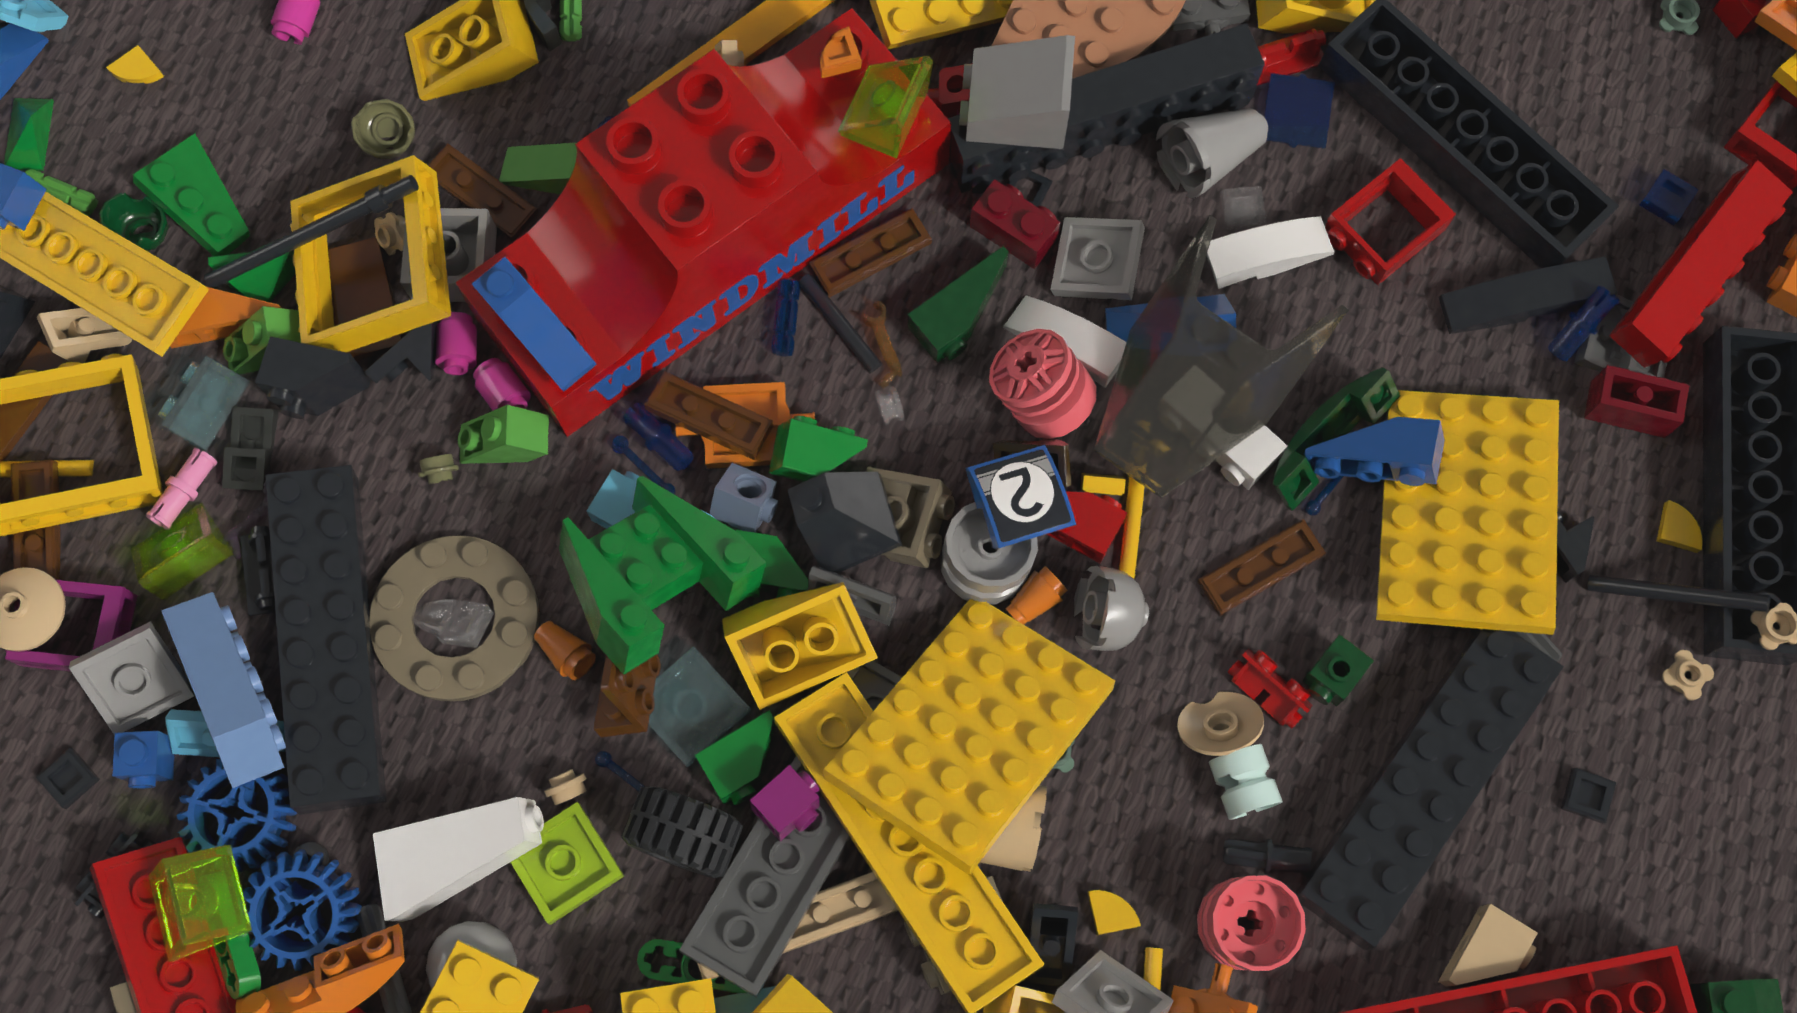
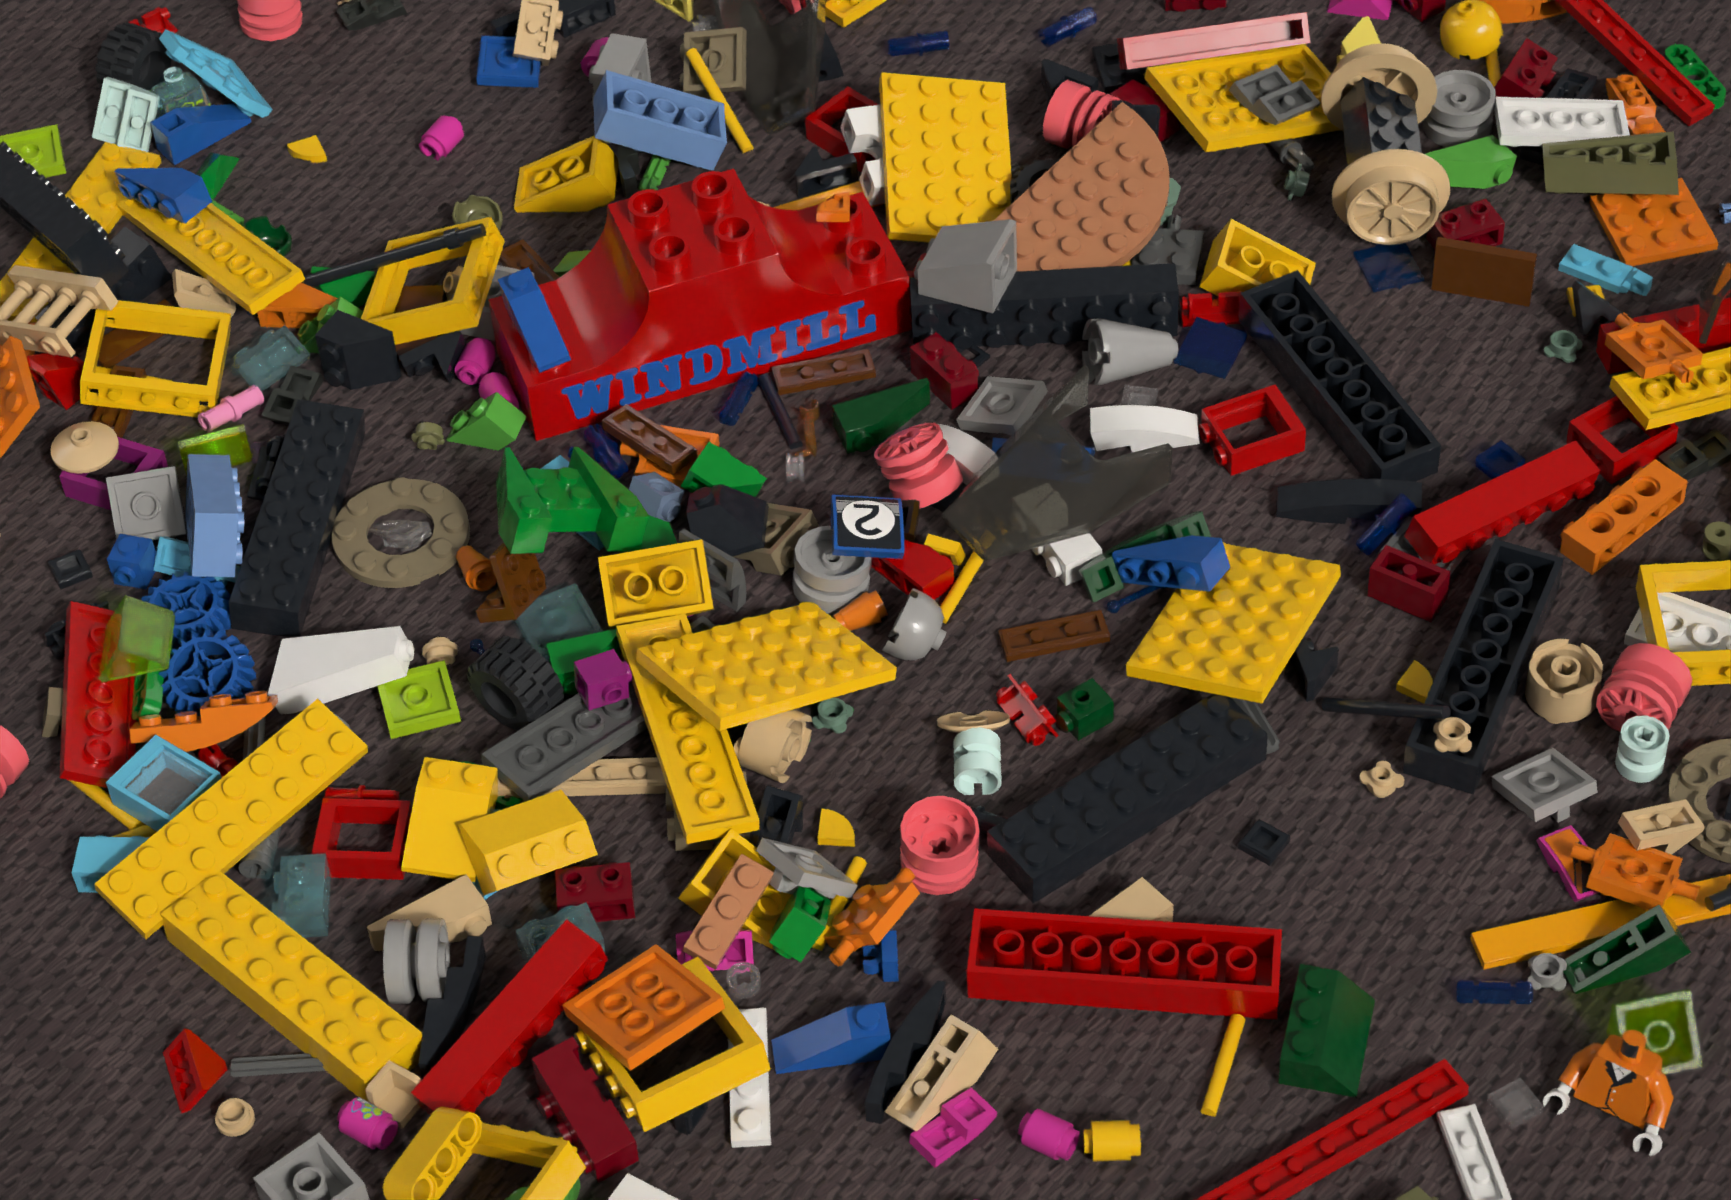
camera: 20 degrees right, 25 degrees down
(194, 196) = (316, 231): green wing -> none
(887, 104) = (861, 243): clear neon green slope -> none

